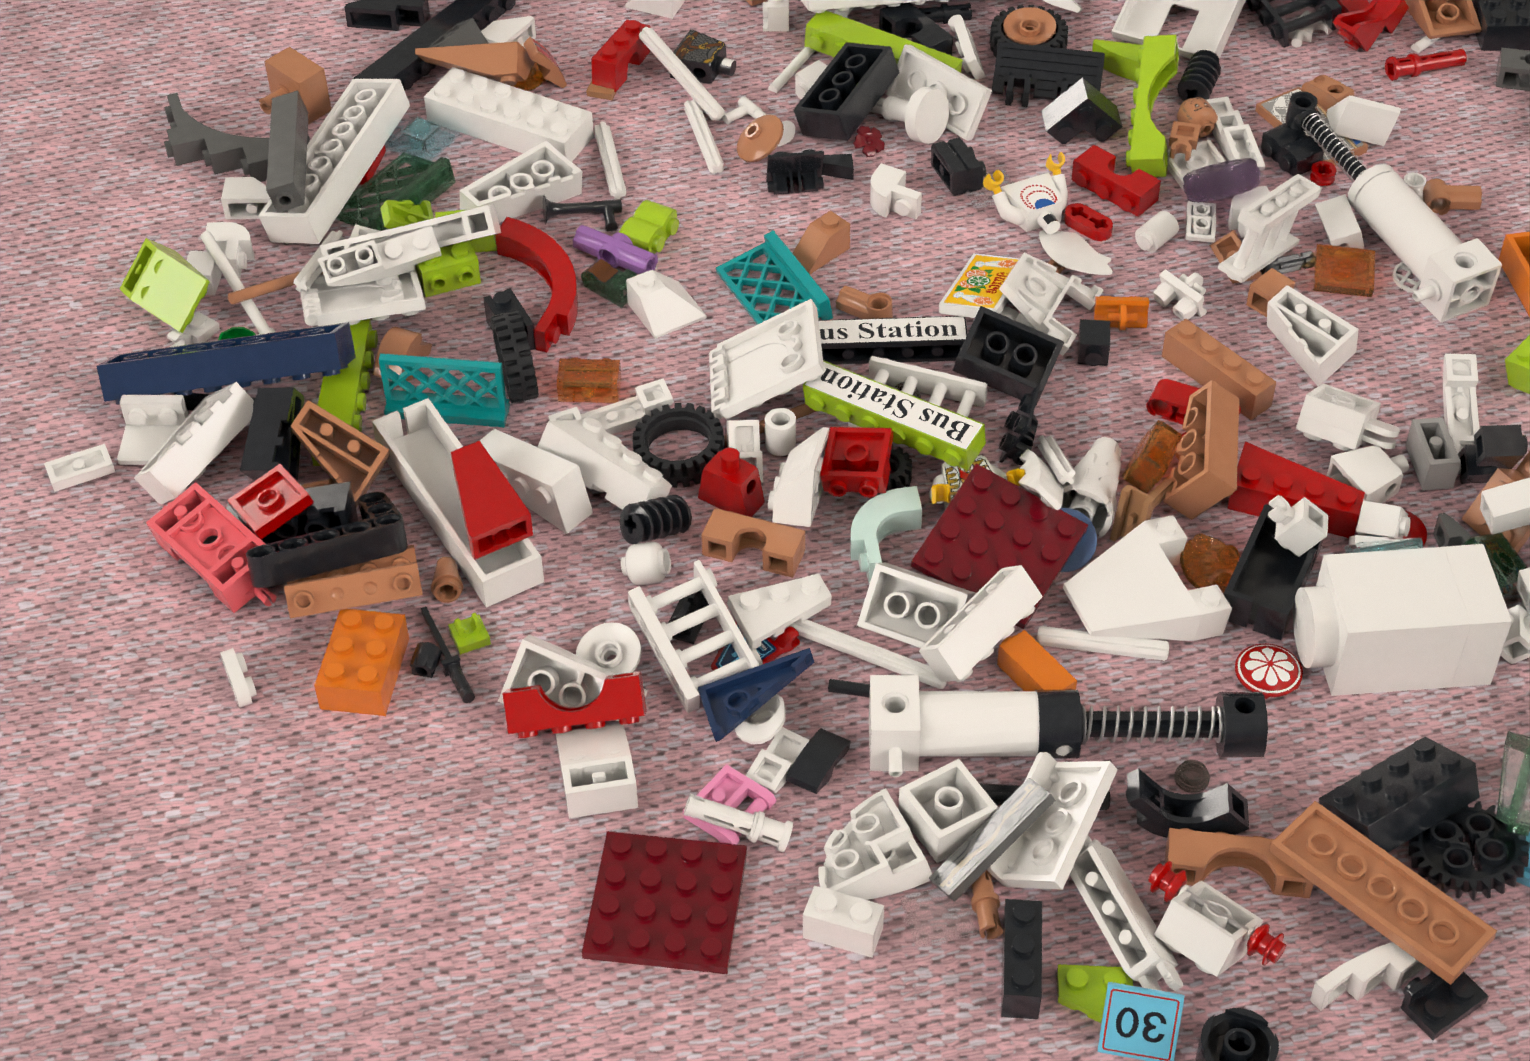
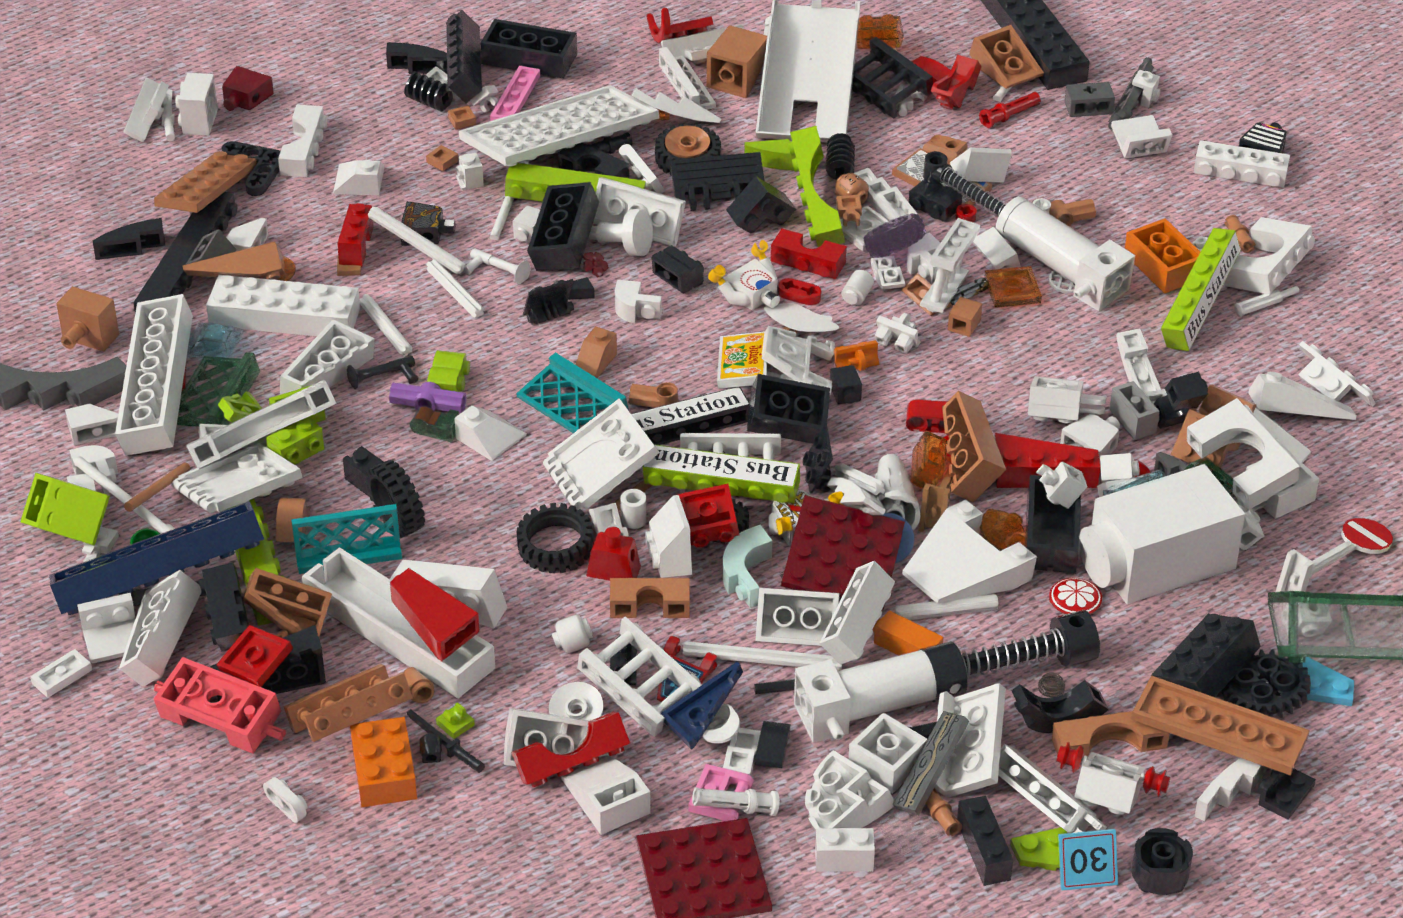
camera: 20 degrees left, 5 degrees down
(287, 152) = (117, 375): dark grey brick -> none
(312, 269) = (182, 461): white axle -> none
(372, 538) = (345, 663): black beam -> none
(379, 261) = (244, 446): white slope -> none
(545, 62) = (295, 255): nougat slope -> none
(551, 262) = (380, 419): red arch -> none
(589, 380) = (457, 505): clear orange brick -> none
(604, 461) = (513, 567): white wedge -> none
(625, 413) = (491, 529): white slope -> none
(655, 519) = (566, 598): black piece -> none
(760, 138) = (505, 280): nougat dish -> none
(774, 607) = (695, 638): white wing -> none
(1208, 359) = (944, 380): nougat brick -> none
(1311, 333) = (1008, 340): white wedge -> none

